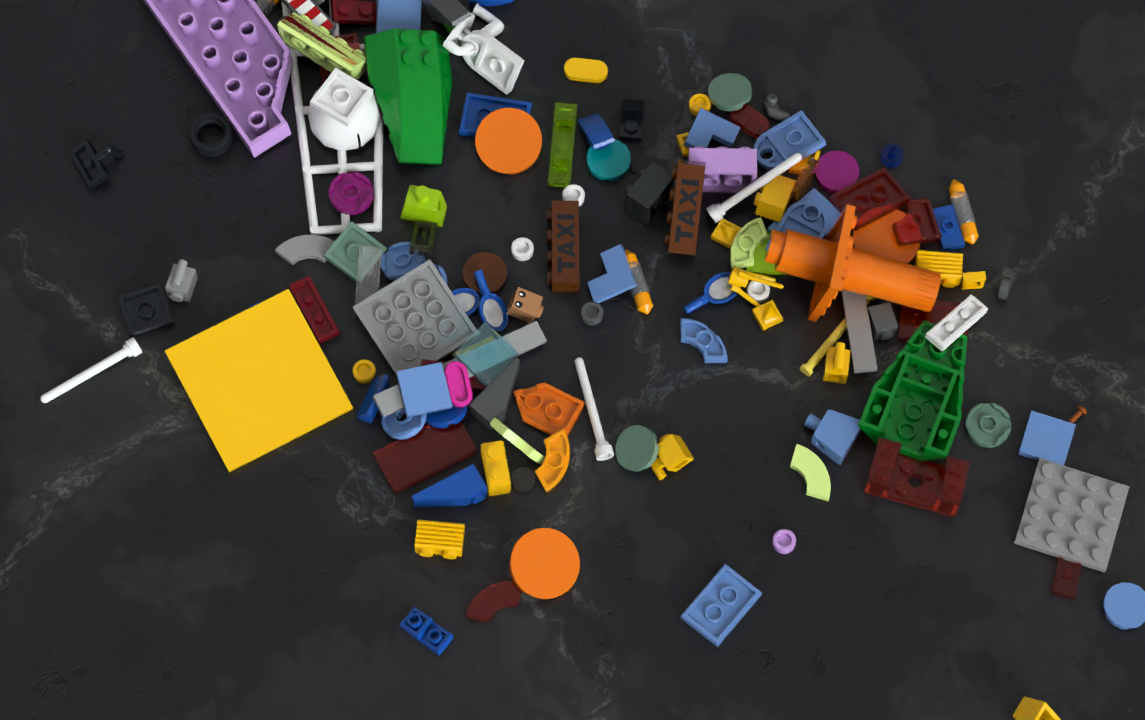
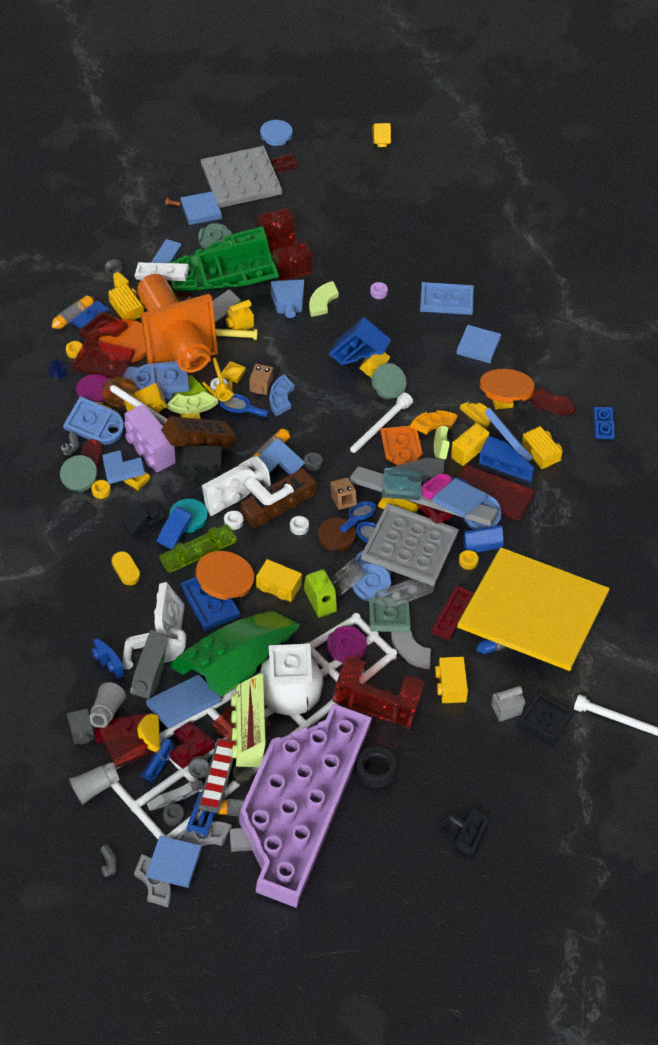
camera: 125 degrees left, 15 degrees down
(243, 255) = (452, 680): none -> yellow brick
(272, 158) = (373, 701): none -> clear red plate
(467, 183) = (279, 580): none -> yellow brick
(475, 508) = (510, 437): none -> medium blue tile
(535, 516) = (477, 413): none -> yellow tile
(601, 226) = (240, 482): none -> white plate
(629, 588) = (478, 344): none -> medium blue tile
(697, 438) = (359, 342): none -> blue wedge
(733, 329) = (261, 379): none -> medium nougat brick
(910, 185) = (73, 348): none -> yellow tile
(989, 352) = (167, 252): none -> medium blue tile

